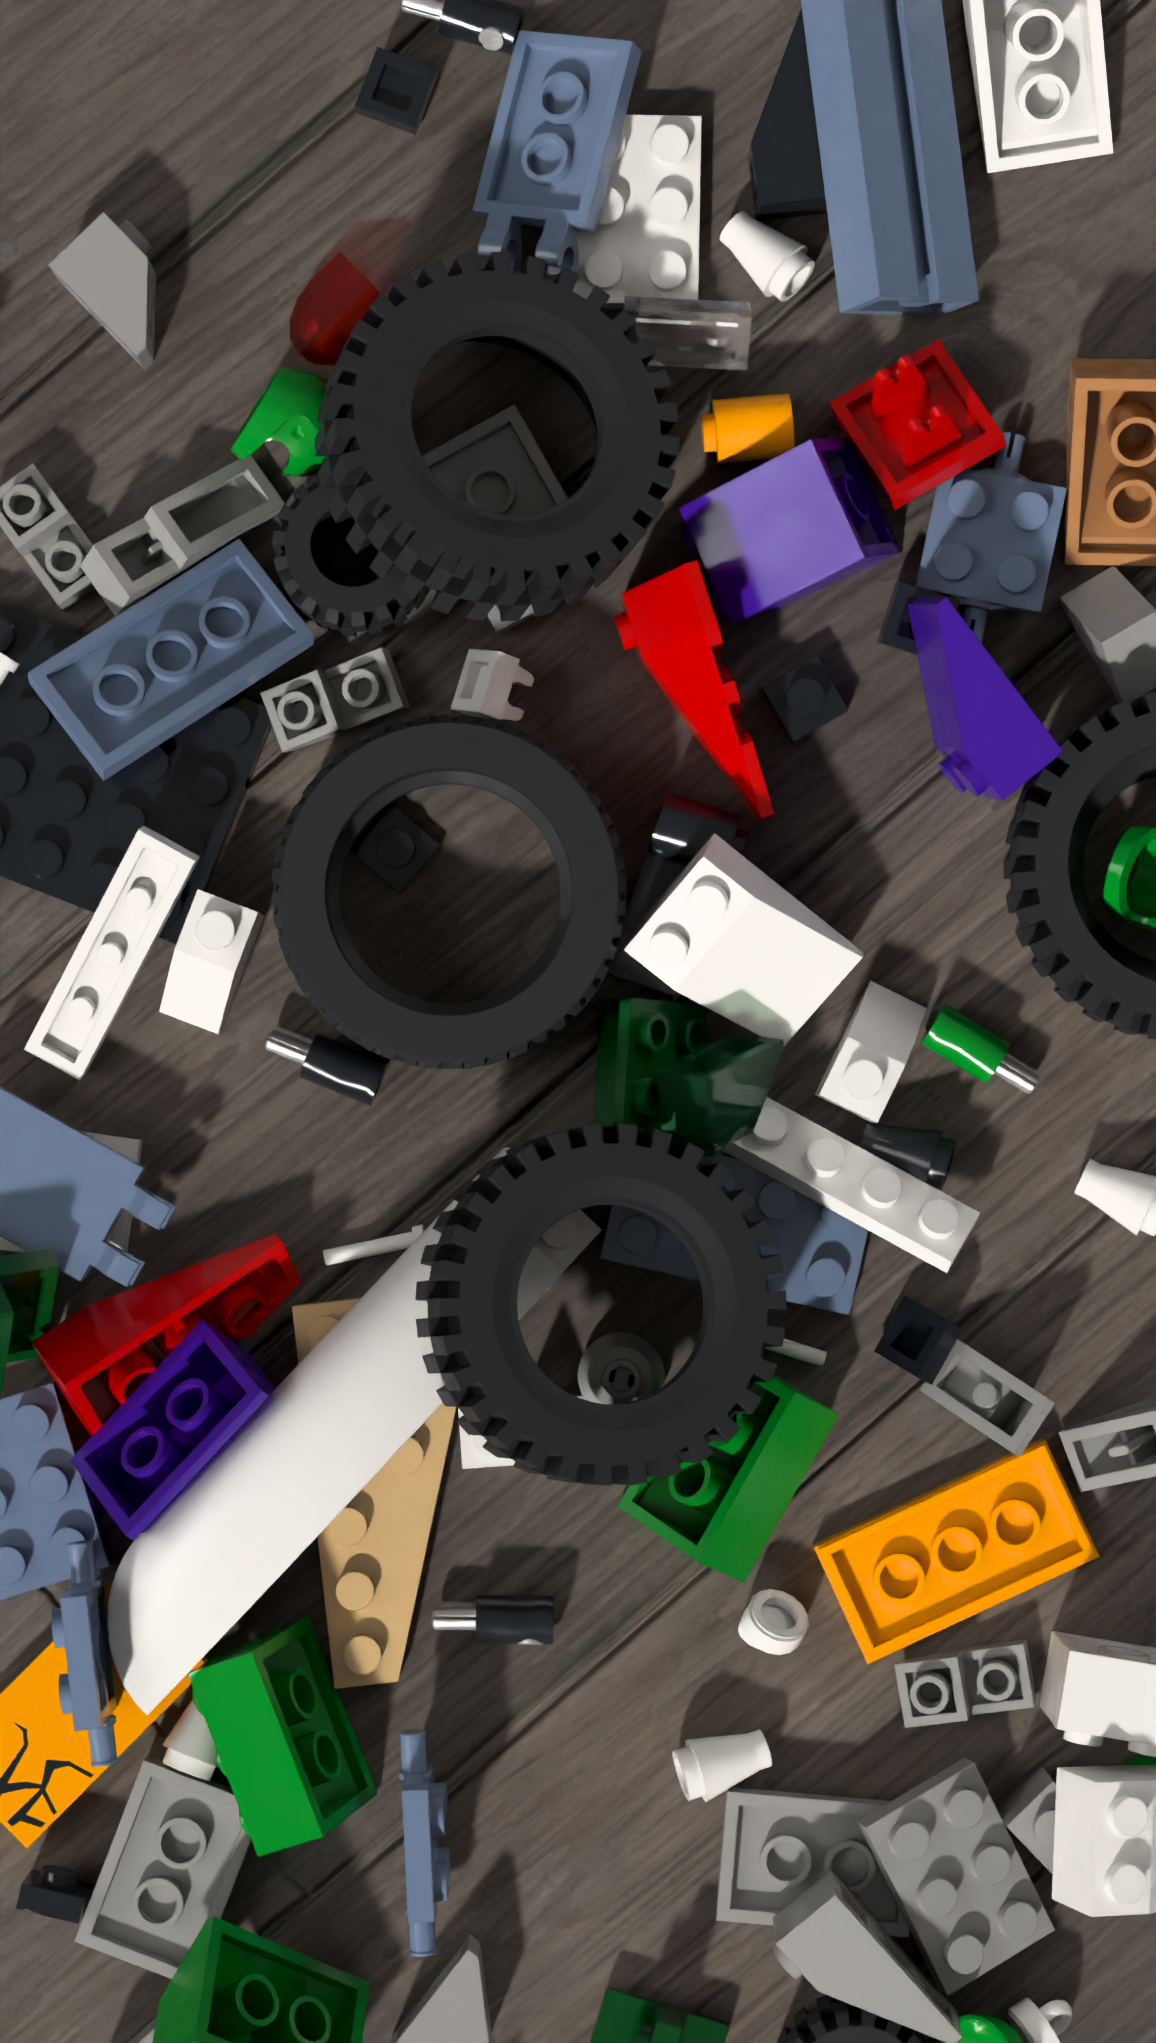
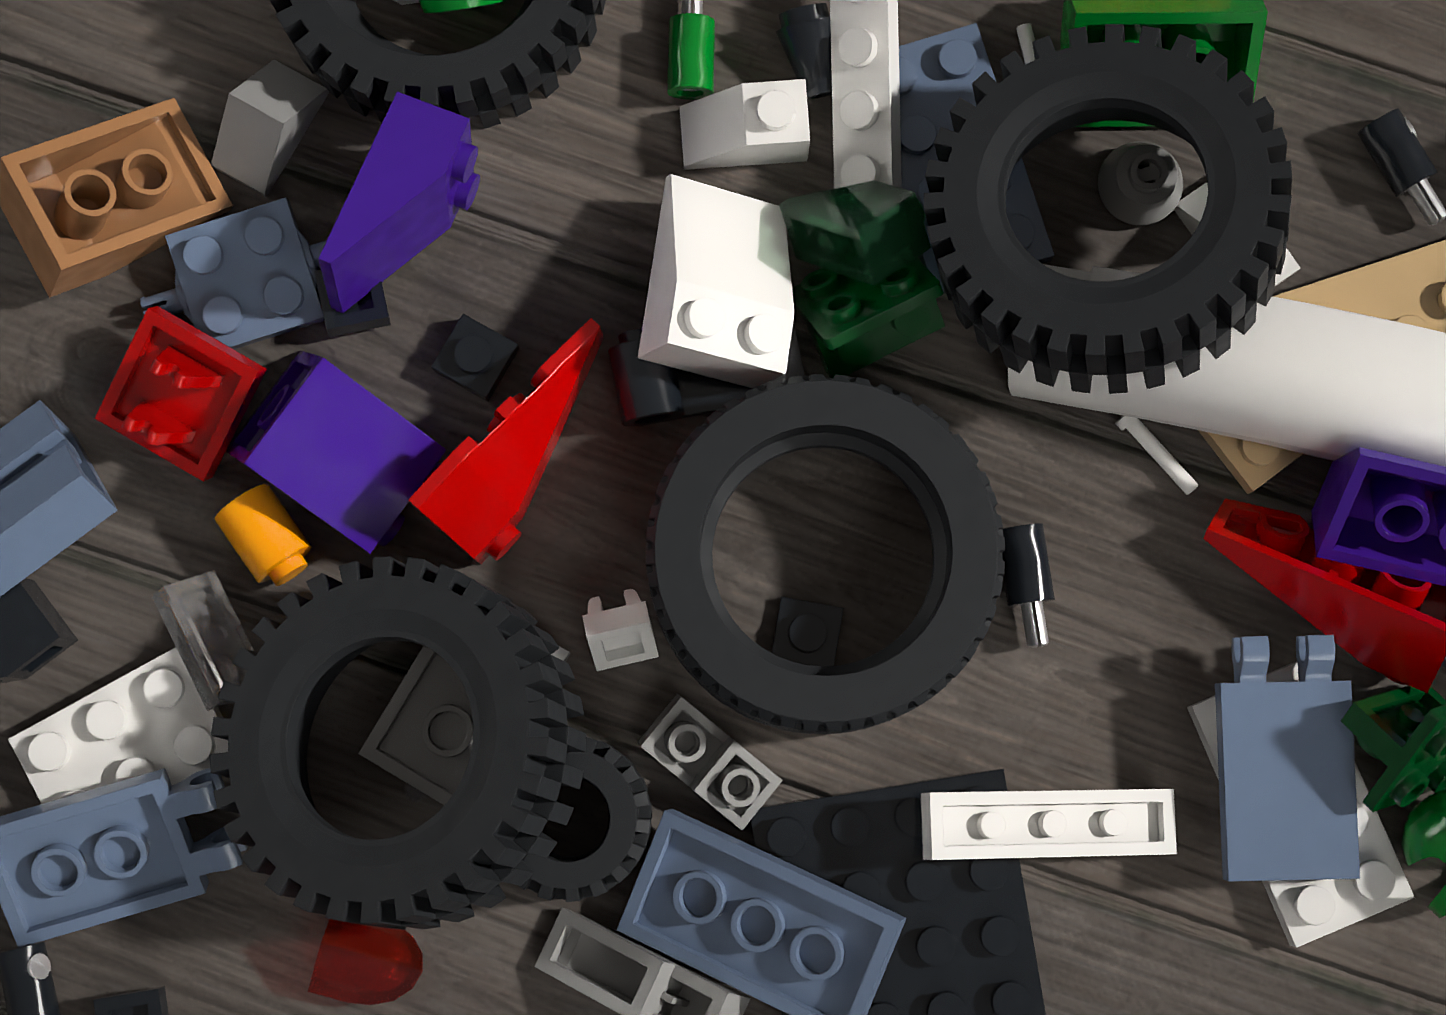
camera: 125 degrees left, 5 degrees down
(209, 961) = (1000, 736): white slope -> none
(289, 415) = (481, 950): green helmet -> none
(769, 257) = (102, 608): white cone -> none

